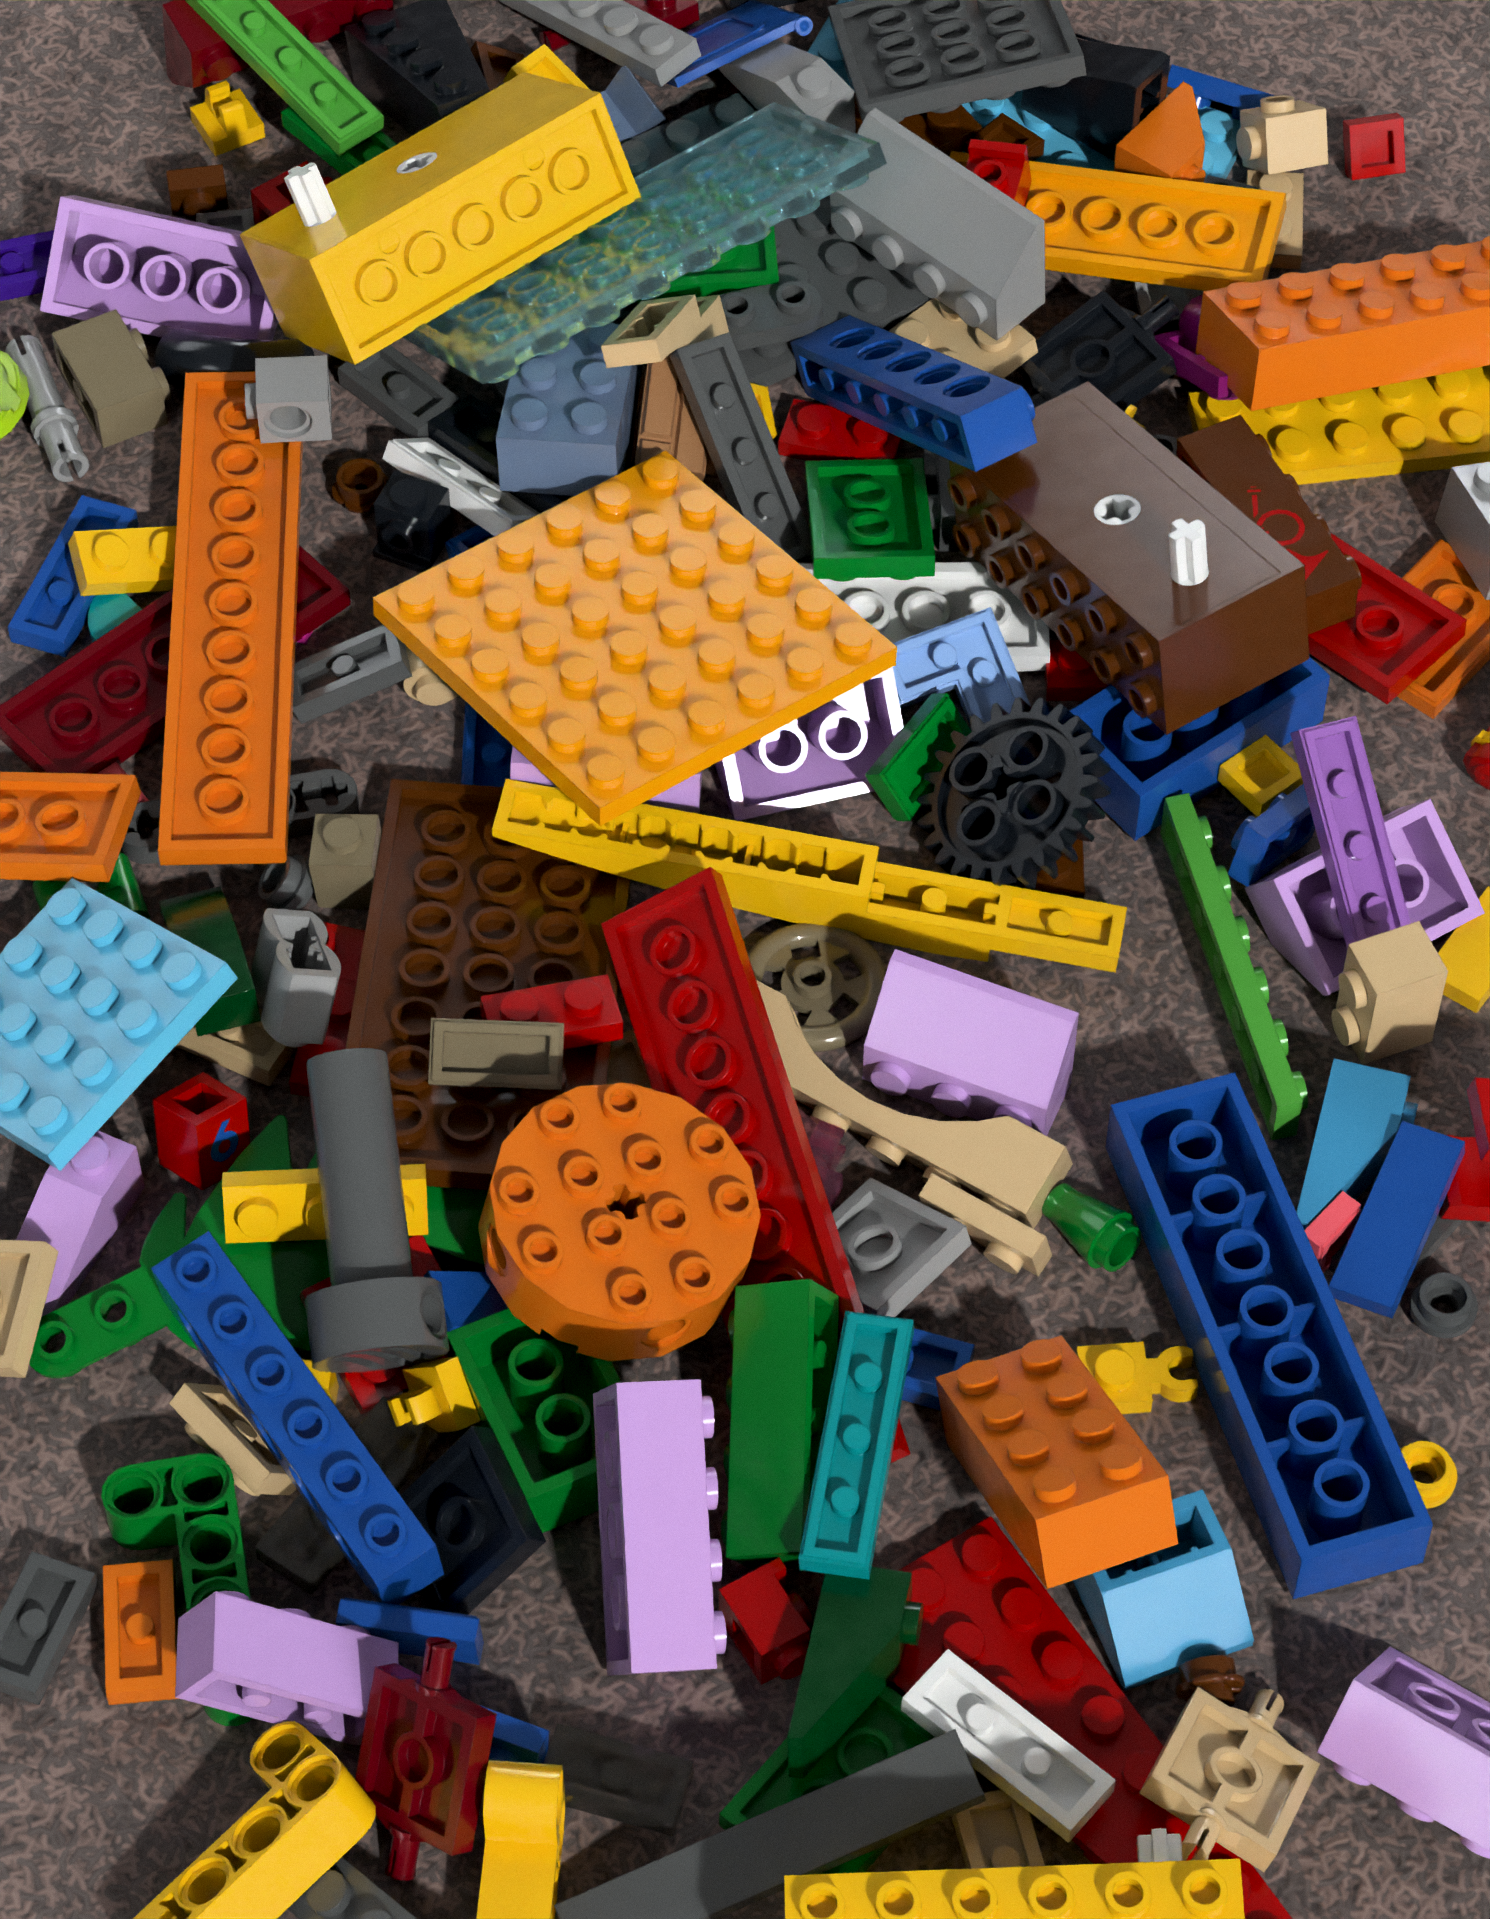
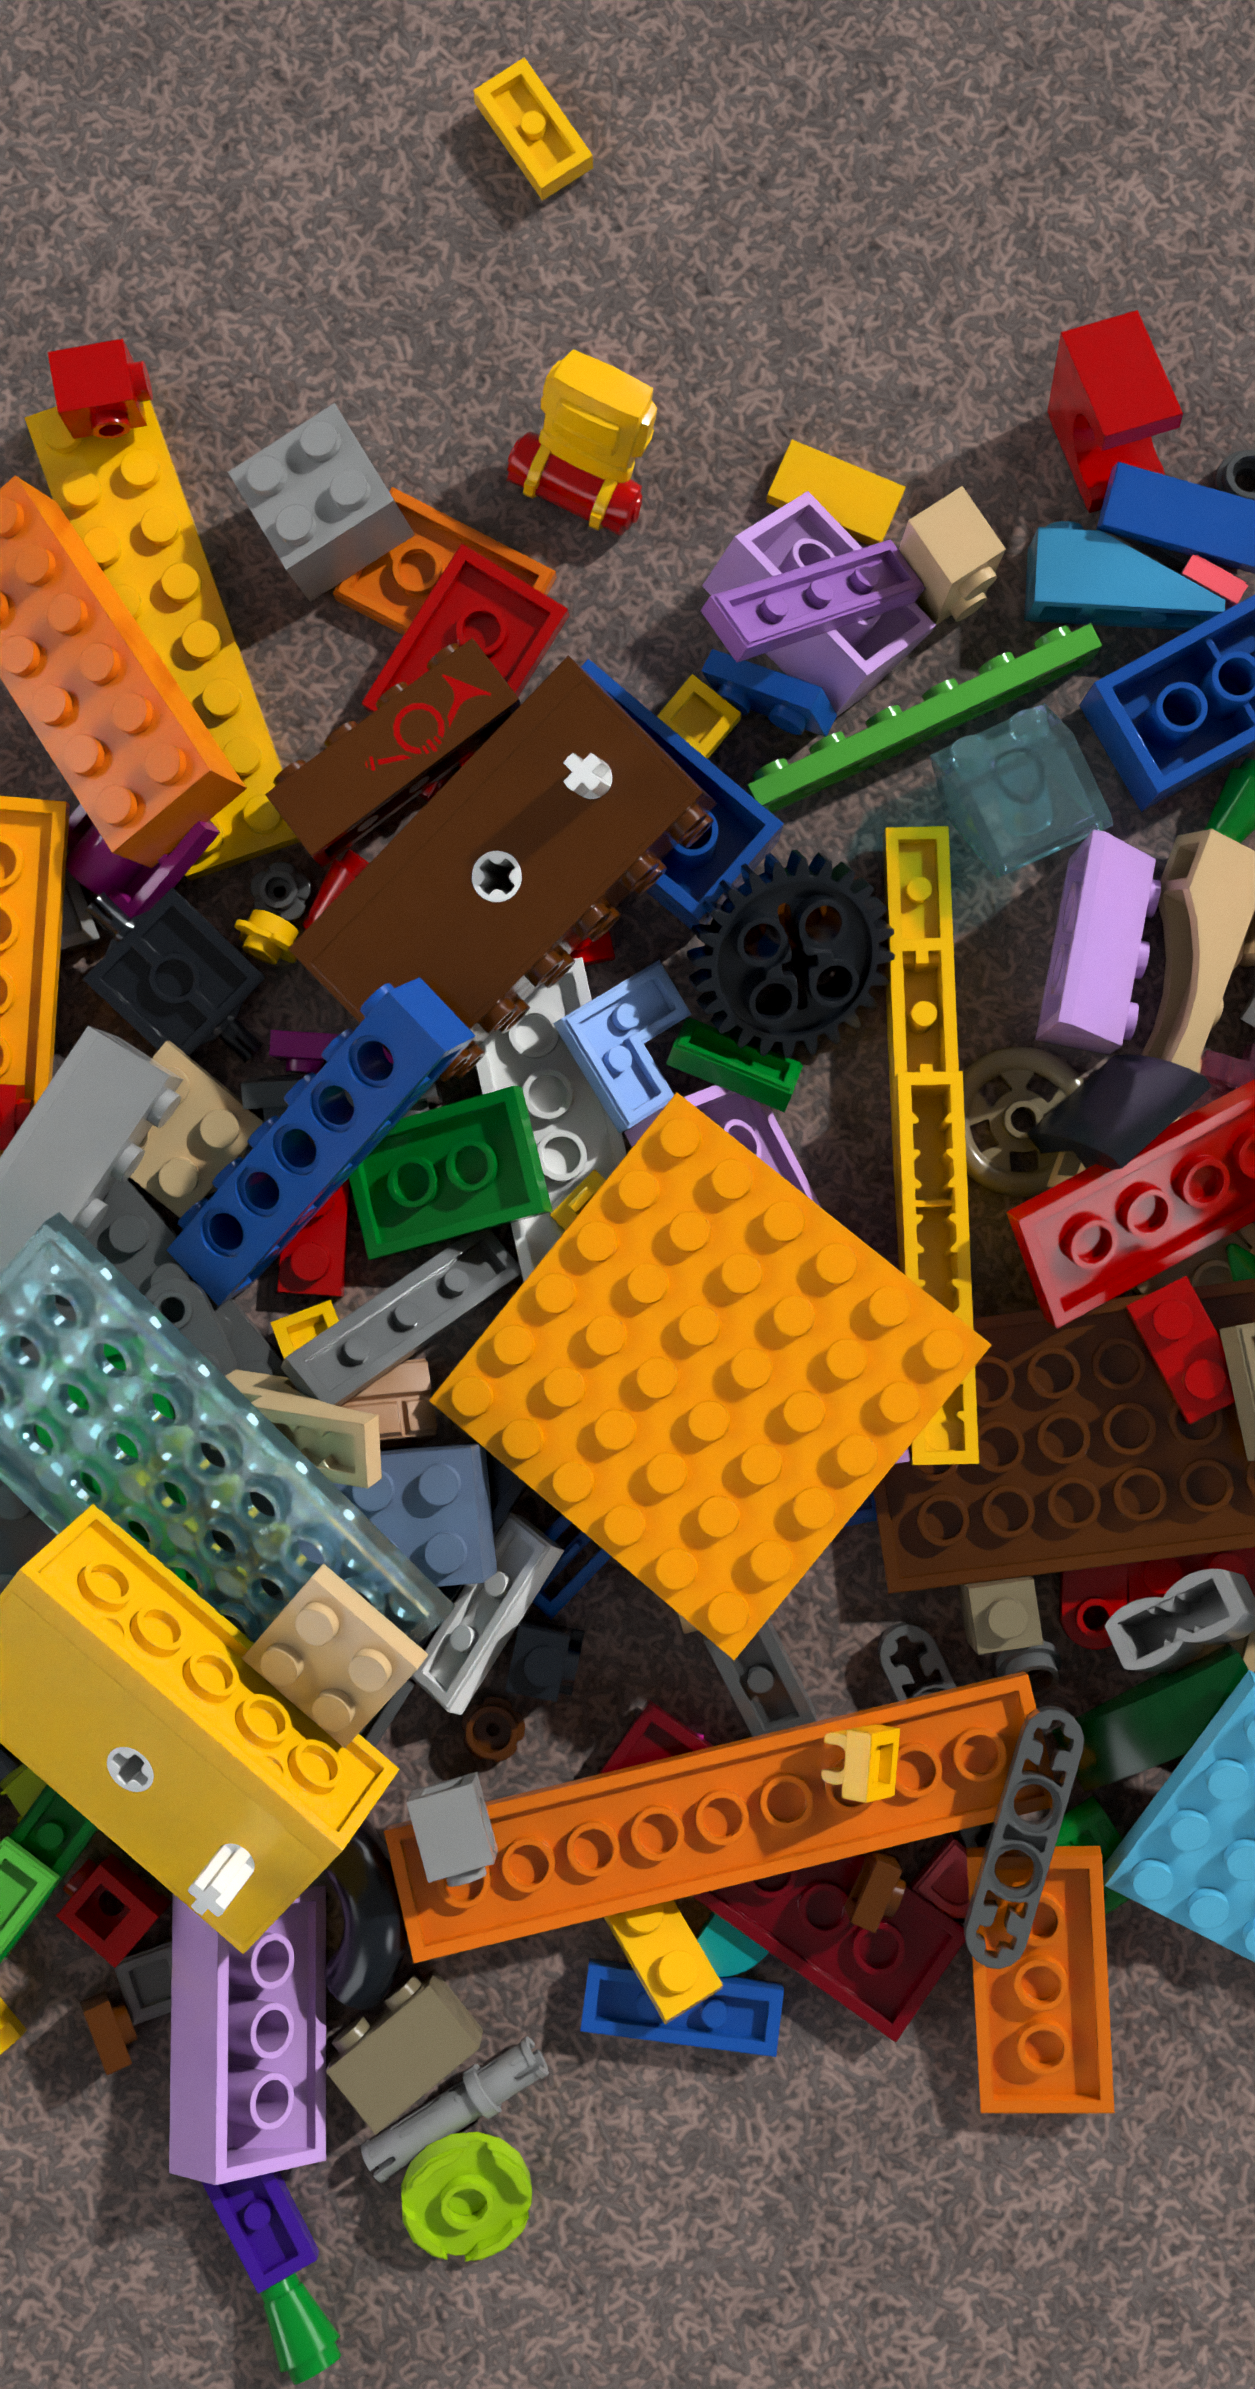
camera: 100 degrees left, 30 degrees up
(131, 702) = (875, 1891): none -> reddish brown plate
(149, 796) = (1030, 1837): none -> dark grey beam
(248, 694) = (868, 1763): none -> yellow tile
(465, 310) = (335, 1656): none -> tan plate
(797, 1013) = (1119, 1110): none -> black slope
(1141, 1008) = (1019, 790): none -> clear light blue slope

